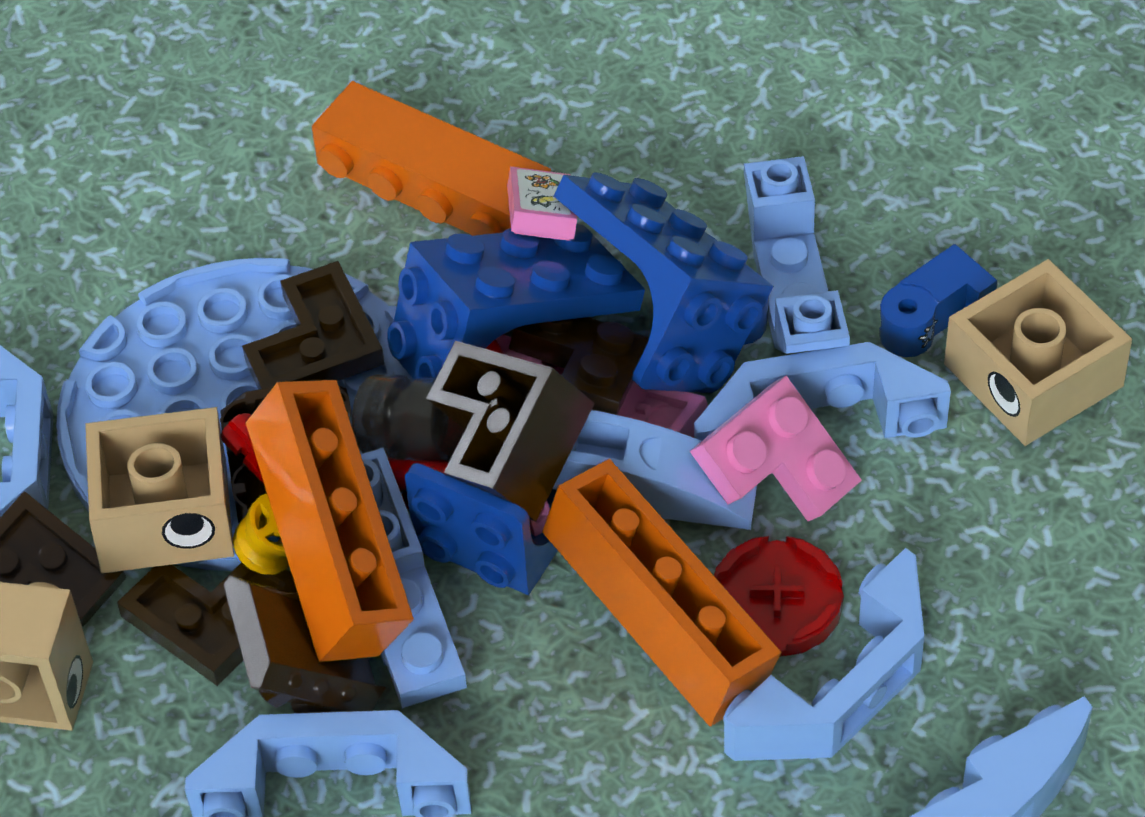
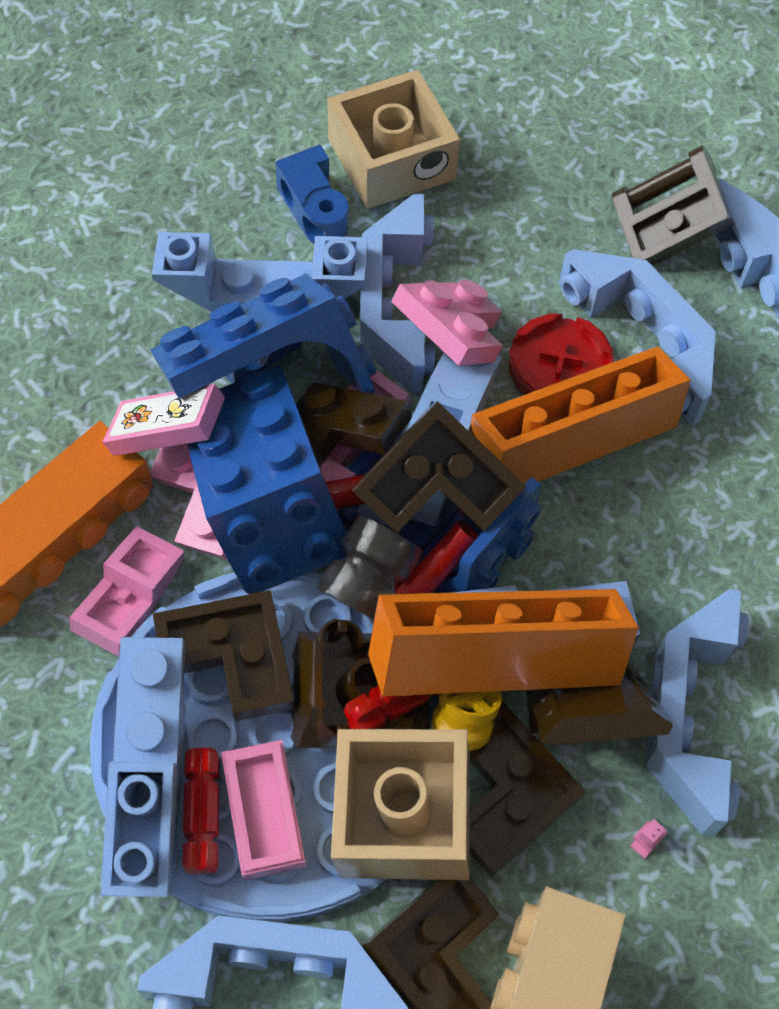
camera: 85 degrees left, 10 degrees up
(148, 352) = (201, 811): none -> red axle
(171, 389) = (263, 810): none -> bright pink tile
(172, 302) = (145, 769): none -> light blue slope
(182, 753) = (648, 838): none -> bright pink piece
(368, 251) = (130, 589): none -> bright pink slope
(1019, 678) = (678, 219): none -> plate

